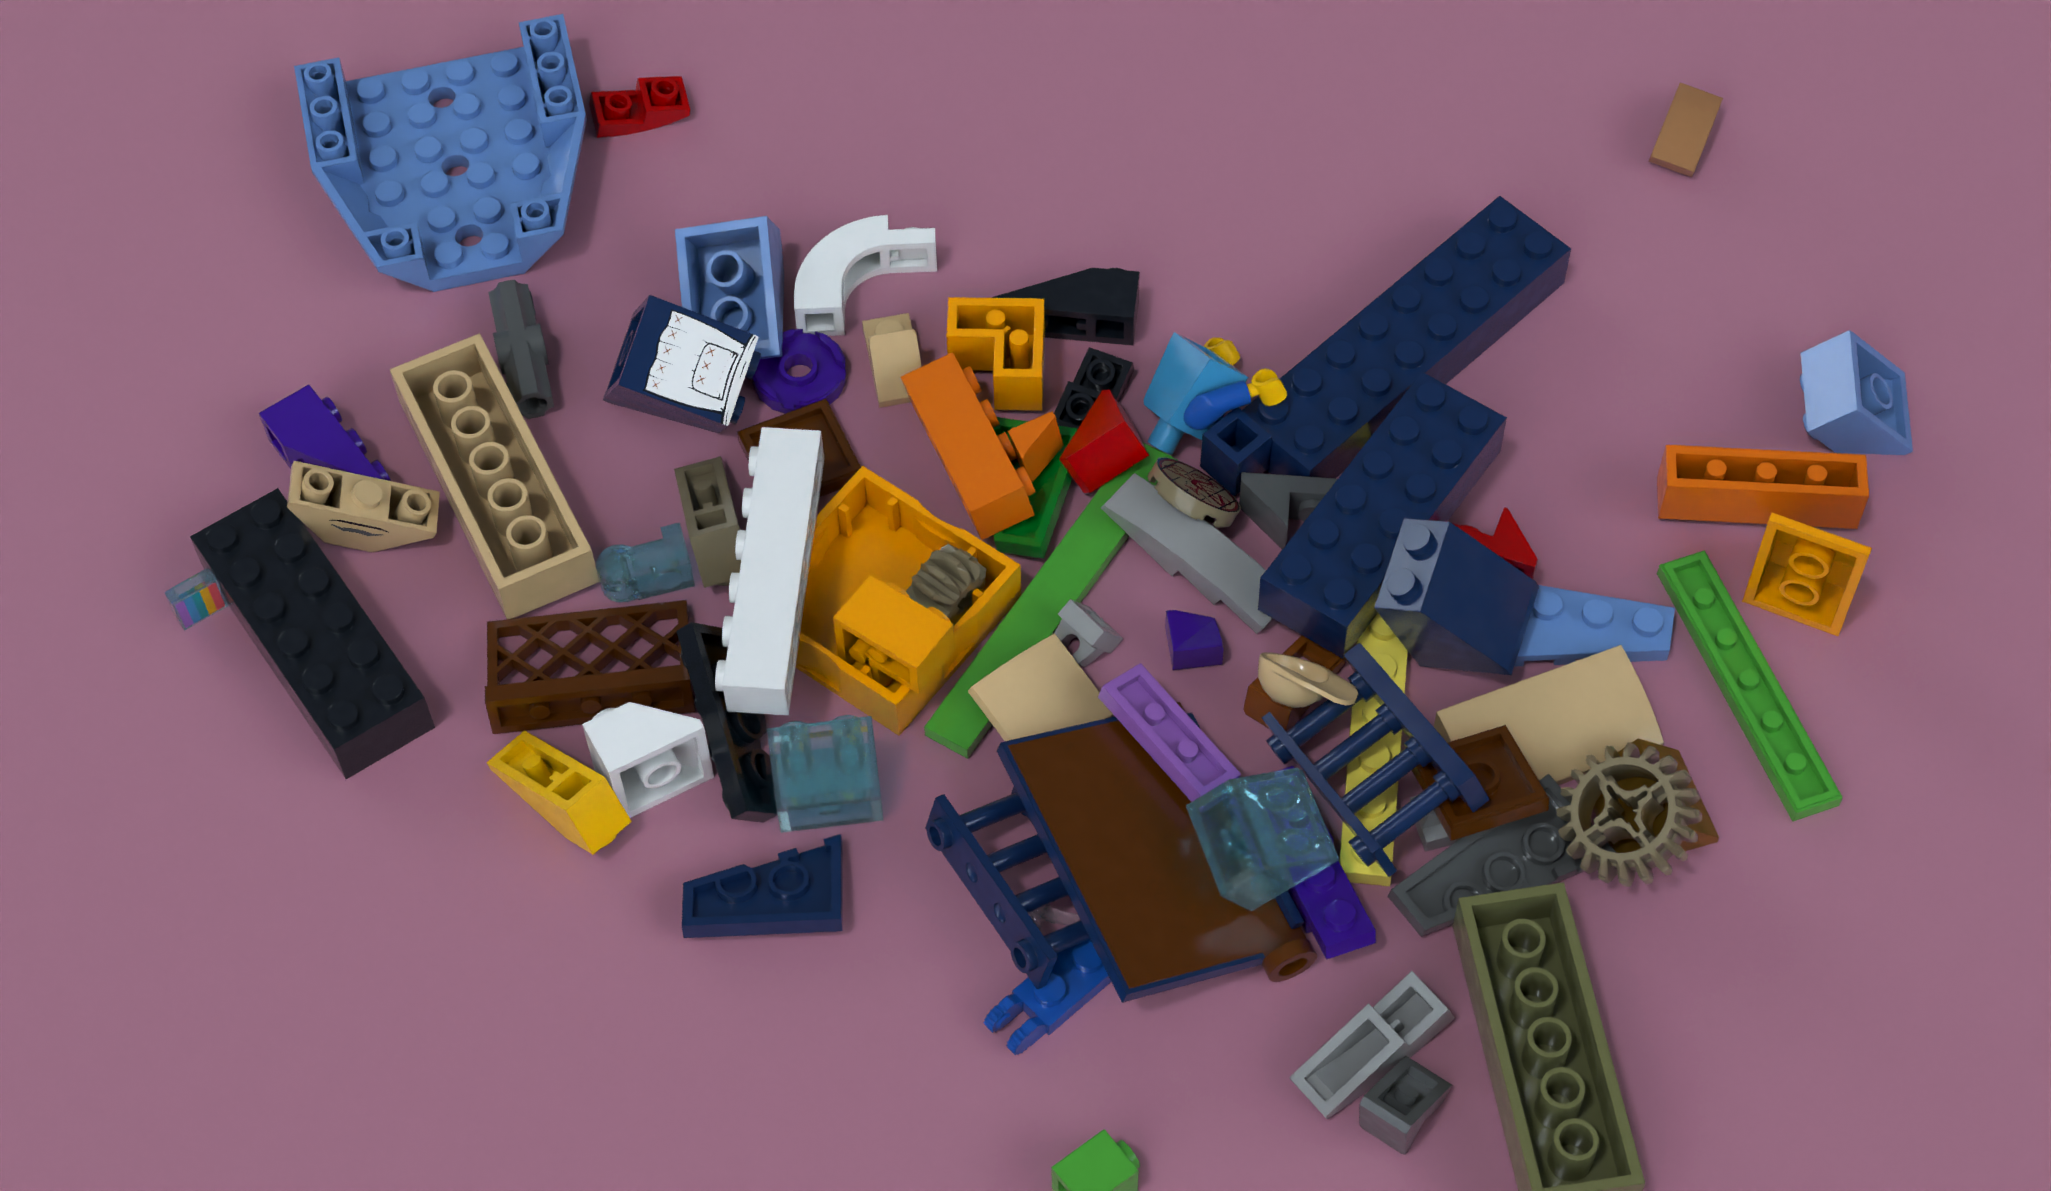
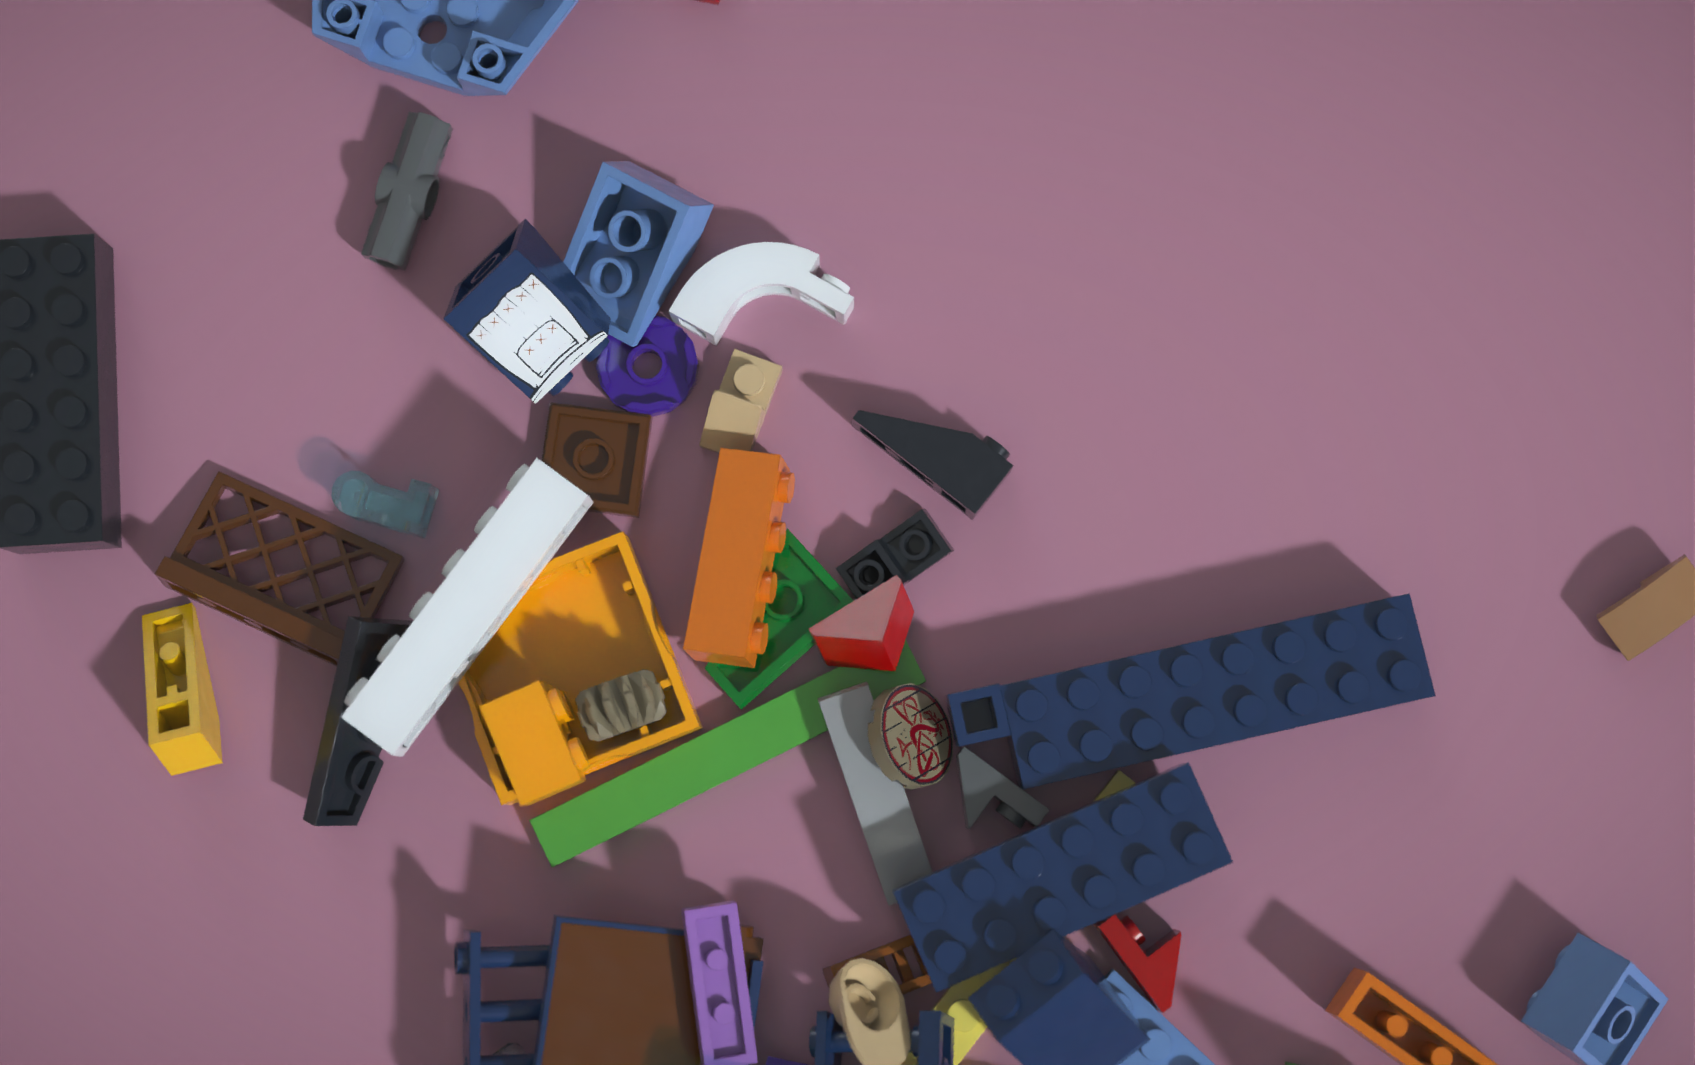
camera: 30 degrees right, 25 degrees up
(311, 433) = (167, 180): dark purple slope -> none
(361, 509) = (161, 293): tan slope -> none
(494, 477) = (297, 326): tan brick -> none
(648, 754) = (252, 710): white slope -> none
(710, 519) = (467, 483): dark tan slope -> none
(779, 897) = (301, 906): dark blue wing -> none
(825, 773) = (404, 829): clear light blue slope -> none
(1004, 339) = (850, 464): light orange brick -> none
(1036, 443) = (792, 603): orange slope -> none
(1038, 692) = (641, 864): tan slope -> none
(1092, 631) = (732, 812): light grey tile -> none
(1193, 640) = (820, 877): dark purple slope -> none
(1199, 386) = (981, 633): dark azure torso -> none

